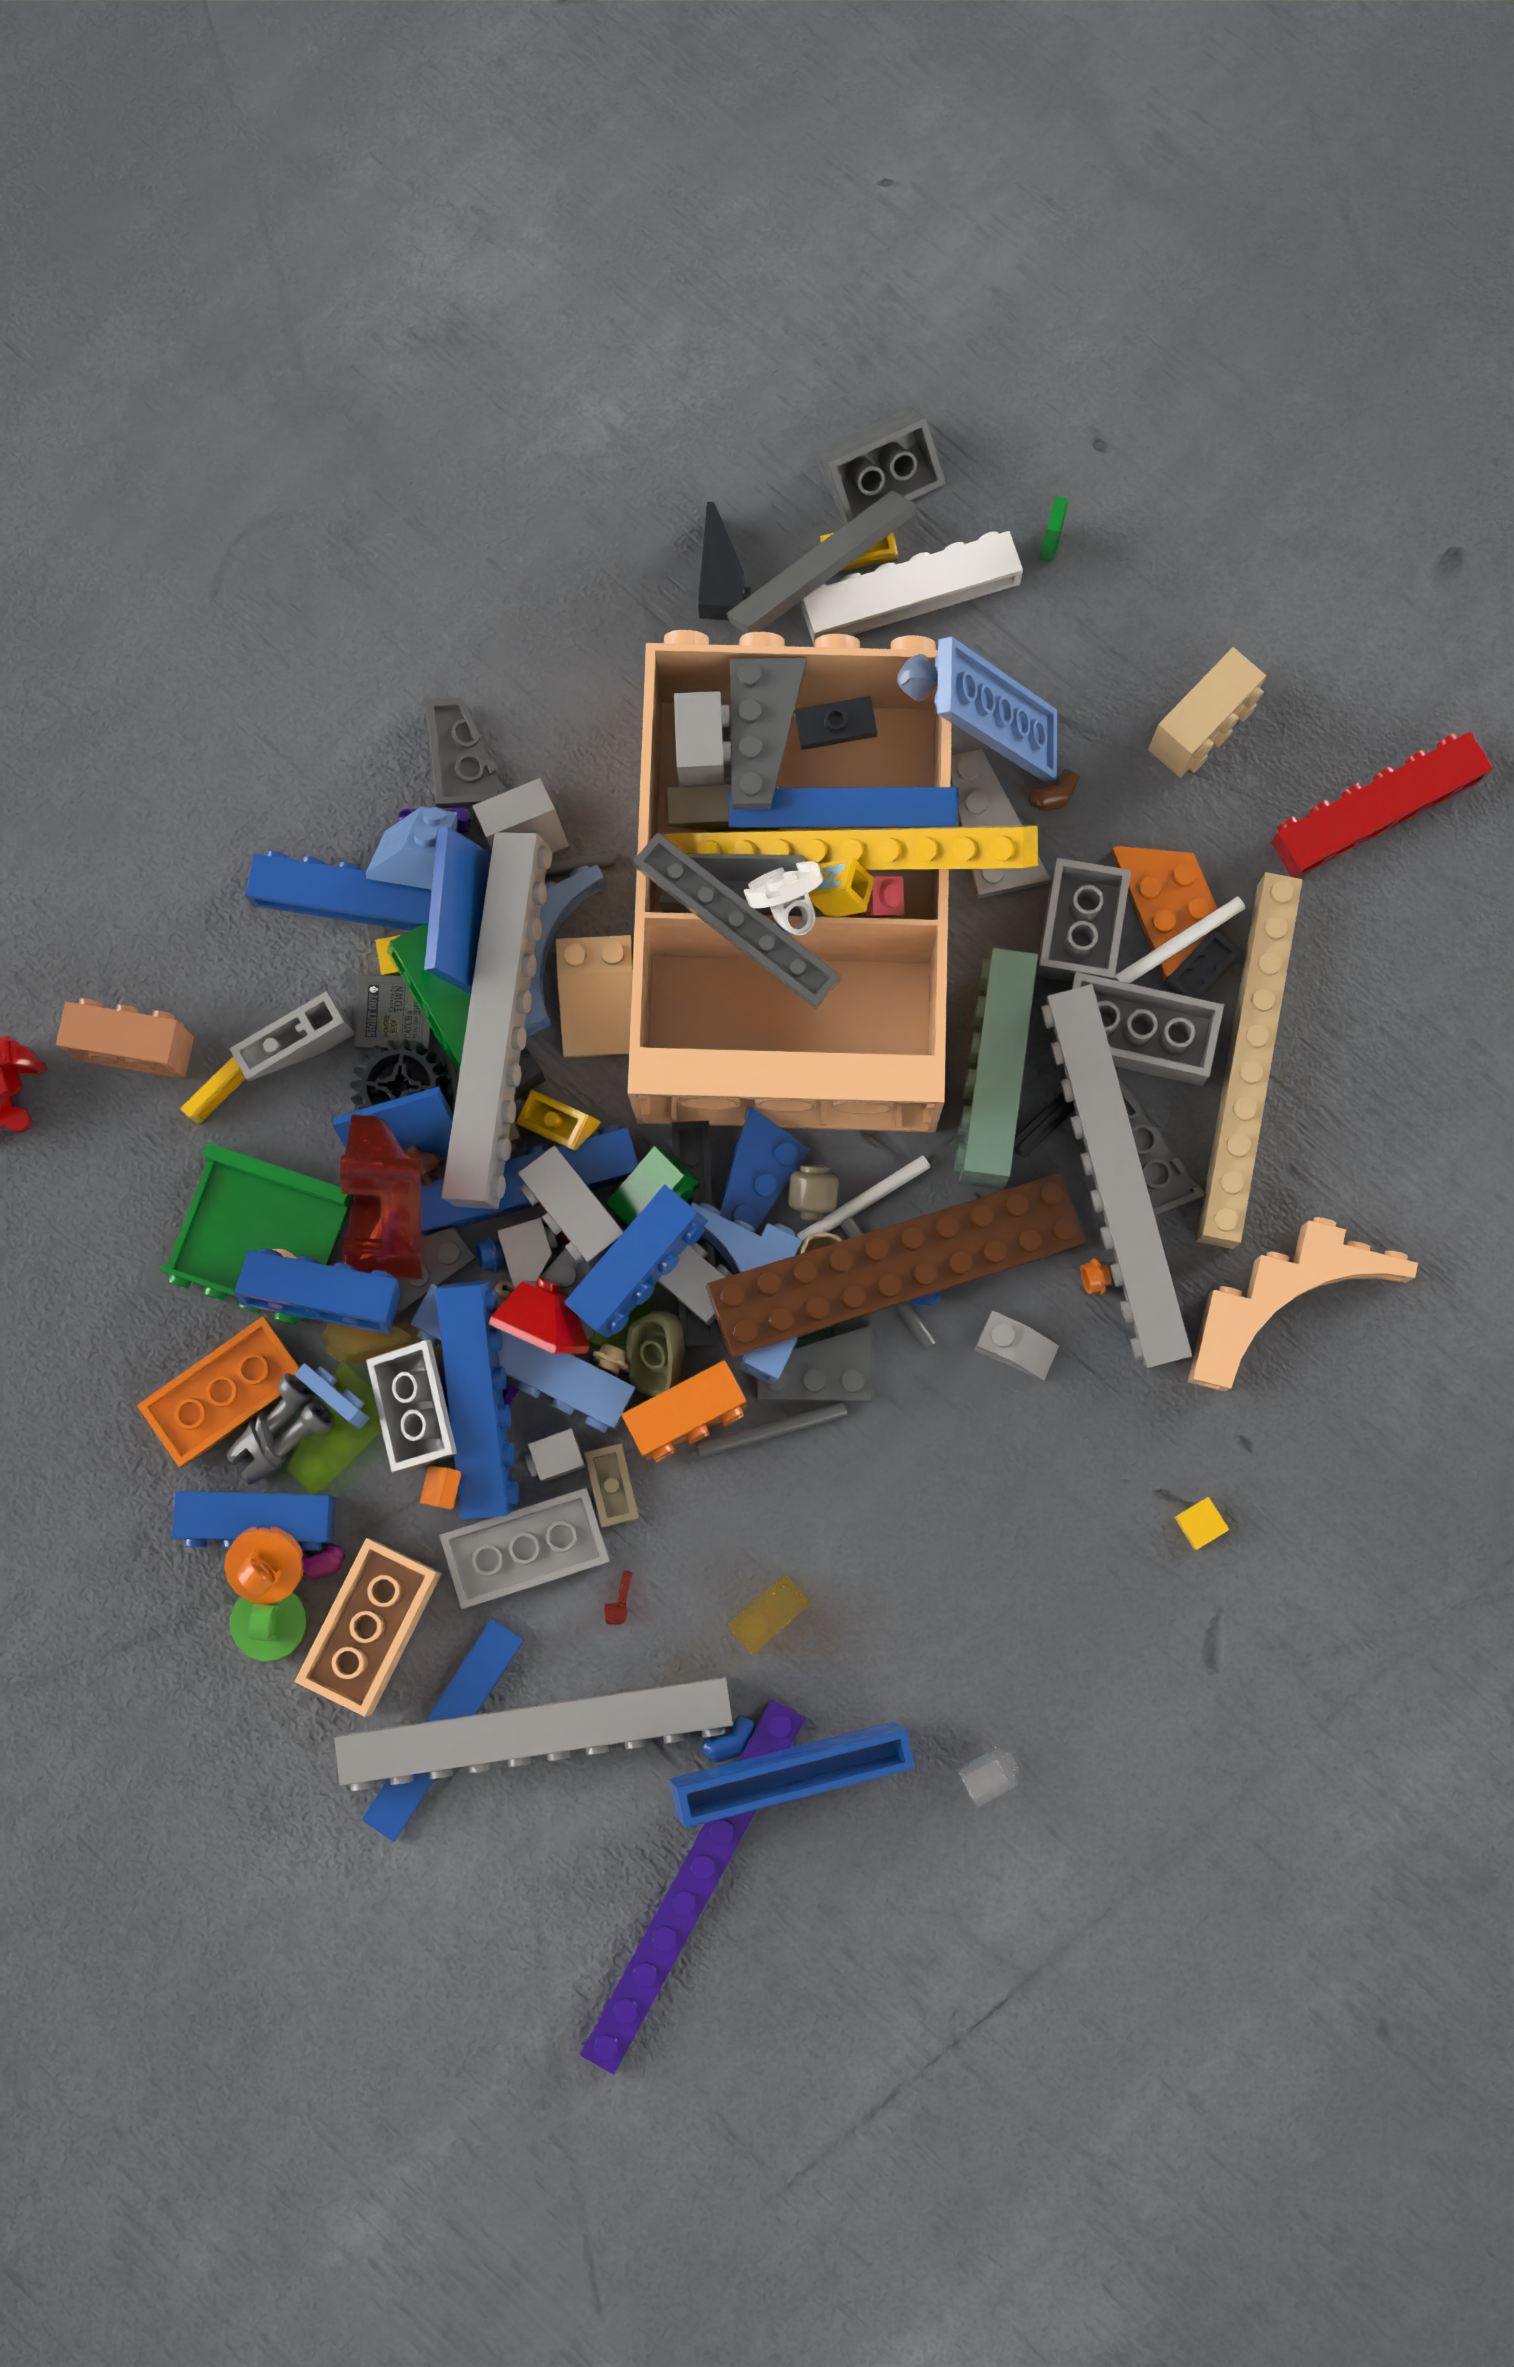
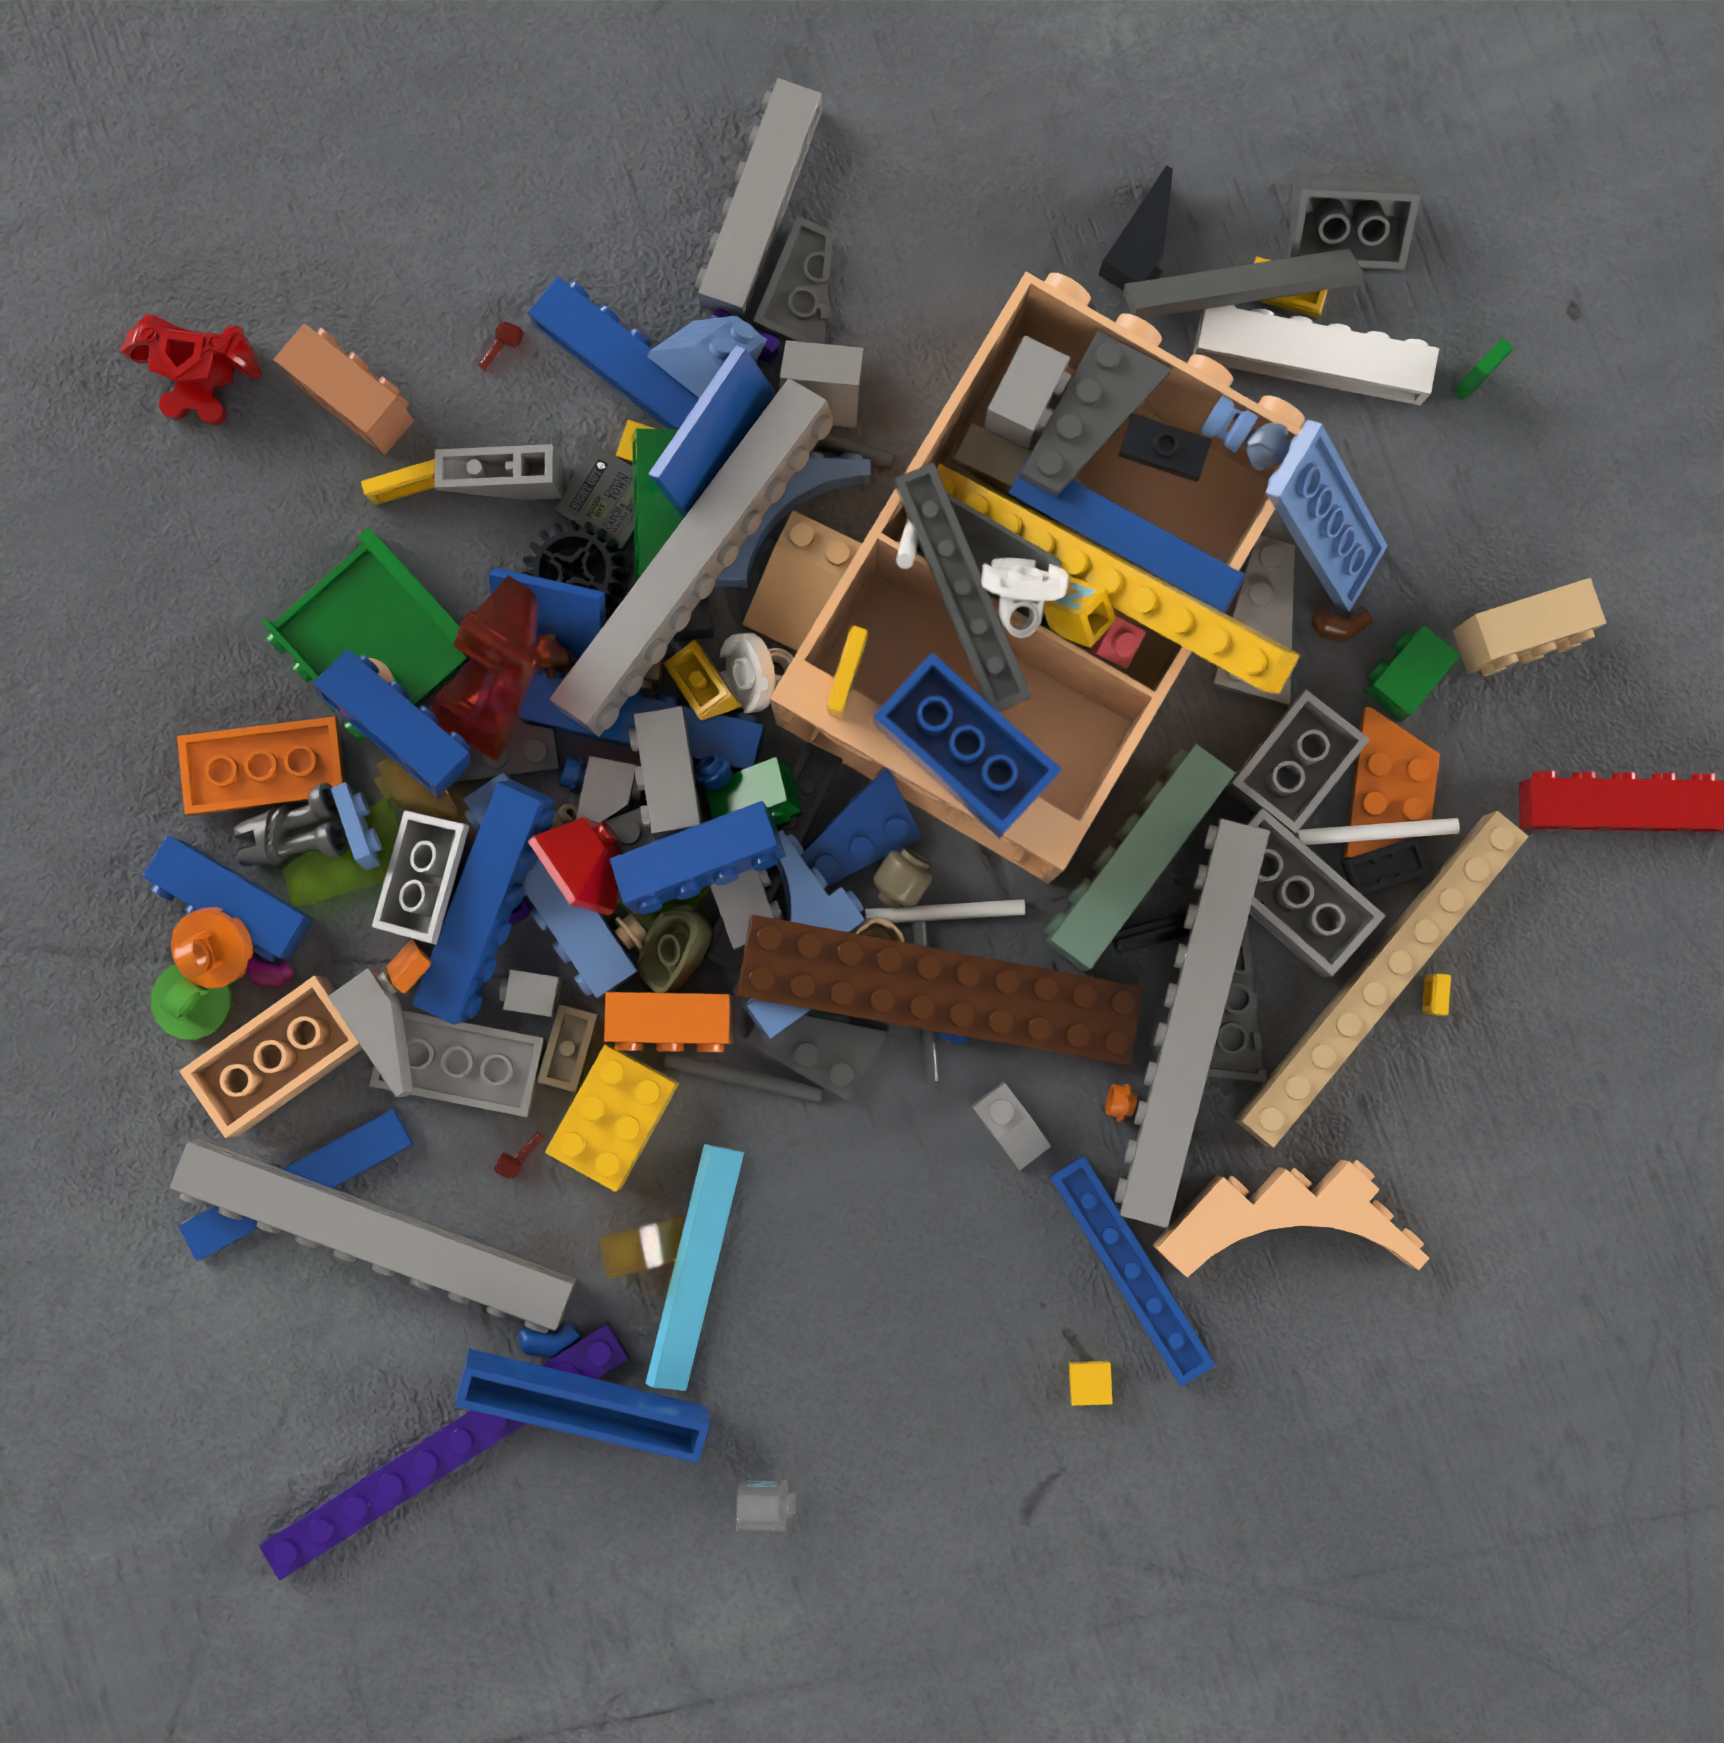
camera: 25 degrees right, 5 degrees up
(234, 924) = (505, 334): none -> clear red hand
(387, 703) = (760, 198): none -> light grey brick
(438, 1547) = (377, 1022): none -> light grey slope
(594, 1088) = (752, 670): none -> white tile
(609, 1186) = (714, 772): none -> blue plate
(672, 909) = (907, 547): none -> white bar
(680, 1036) = (846, 671): none -> yellow tile
(681, 1521) = (612, 1117): none -> yellow brick
(810, 1042) = (965, 745): none -> blue brick
(820, 1610) = (694, 1268): none -> medium azure tile
(868, 673) = (1220, 419): none -> medium blue wheel
(1134, 800) = (1411, 672): none -> green brick
(1183, 1410) = (1132, 1271): none -> blue plate
(1302, 1048) = (1436, 994): none -> yellow tile

